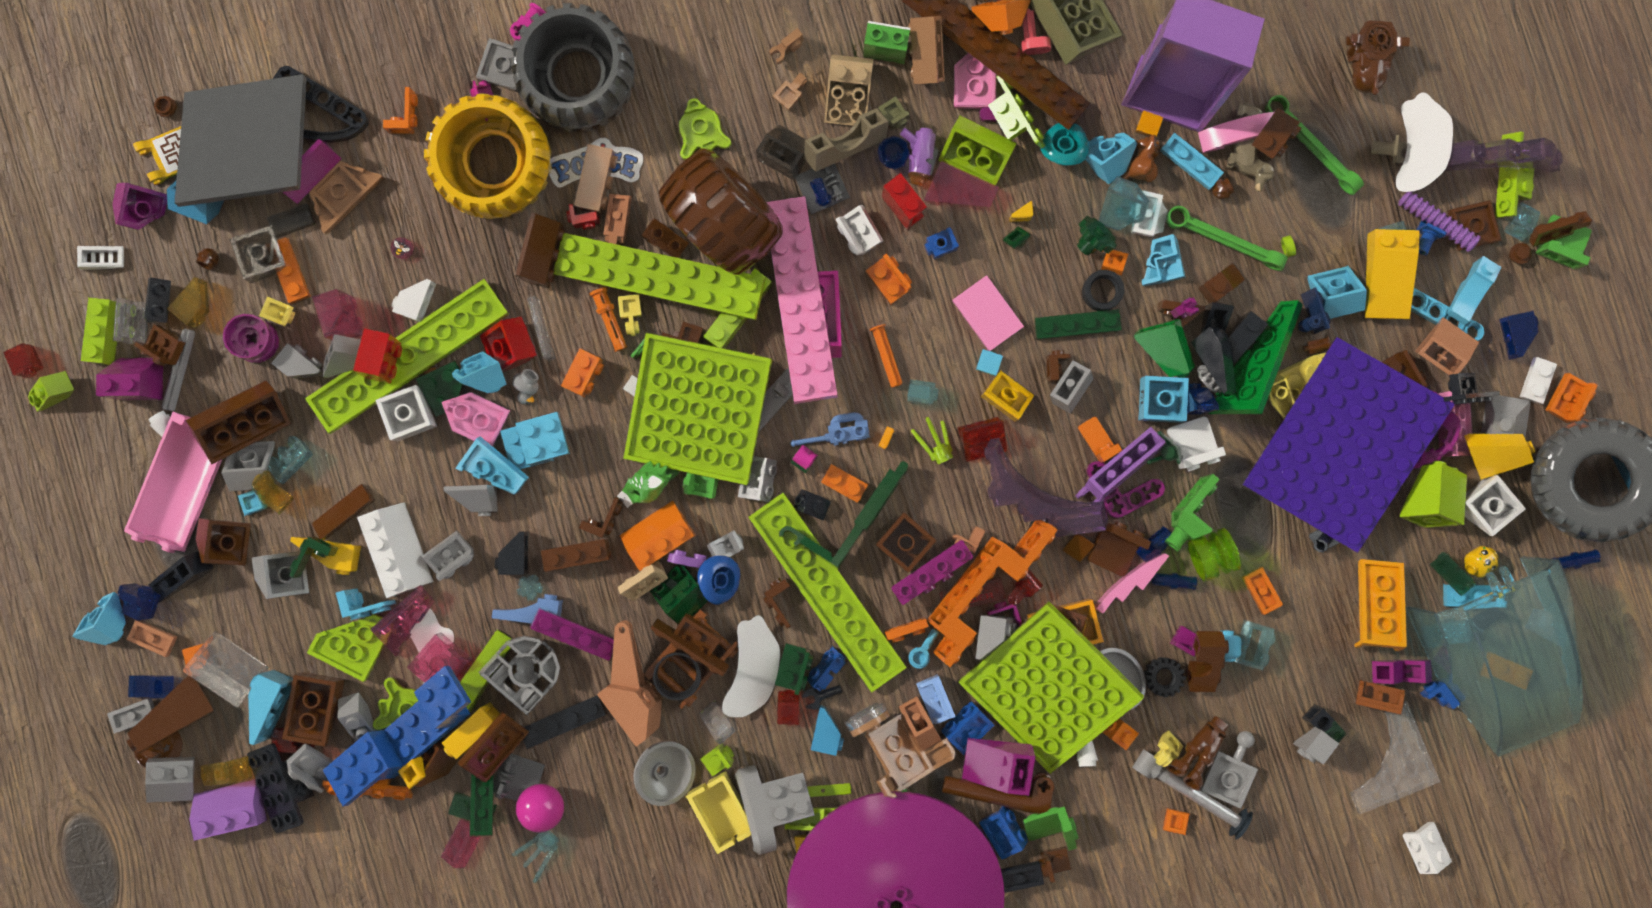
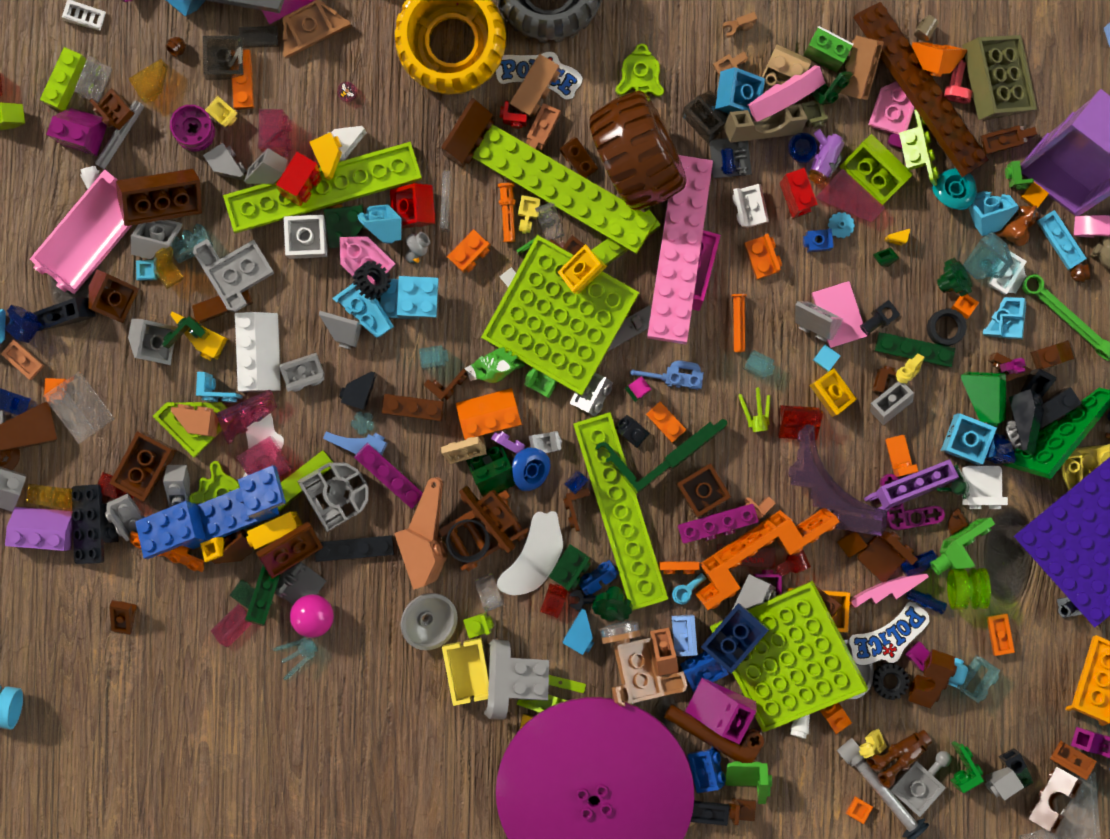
camera: 15 degrees right, 0 degrees up
(157, 300) = (122, 69): black bracket -> none
(266, 703) = (105, 448): medium azure slope -> none
(342, 872) = (122, 616): none -> reddish brown slope
(343, 474) = (234, 271): none -> light grey piece
(355, 644) = (199, 421): none -> nougat slope
(399, 319) = (327, 153): none -> yellow slope
(483, 445) = (365, 286): none -> black tyre
(580, 495) = (433, 357): none -> clear light blue brick
(655, 314) = (549, 221): none -> clear slope
(703, 355) = (581, 269): none -> yellow slope
(770, 577) = (576, 481): none -> clear blue slope
(809, 115) = (737, 90): none -> dark azure brick
(850, 692) = (612, 605): none -> dark green plant
(860, 100) = (788, 93): none -> bright pink slope
(886, 438) = (715, 394): light orange tile -> none
(901, 89) = (829, 95): none -> dark green bracket
(959, 219) = (841, 225): none -> medium azure piece
(966, 326) = (817, 320): none -> light grey slope
(988, 687) = (735, 638): none -> dark blue slope
(1030, 304) = (879, 318): none -> black bracket
(1080, 346) = (910, 370): none -> light yellow plate
(1101, 75) = (1006, 139): none -> reddish brown hinge
(1121, 110) = (1013, 173): none -> bright green bracket
(1151, 633) = (891, 639): none -> sticker
(1179, 488) = (956, 522): none -> reddish brown tile
(1277, 753) = (971, 777): none -> green bracket
(1367, 761) = (1044, 812): none -> arch

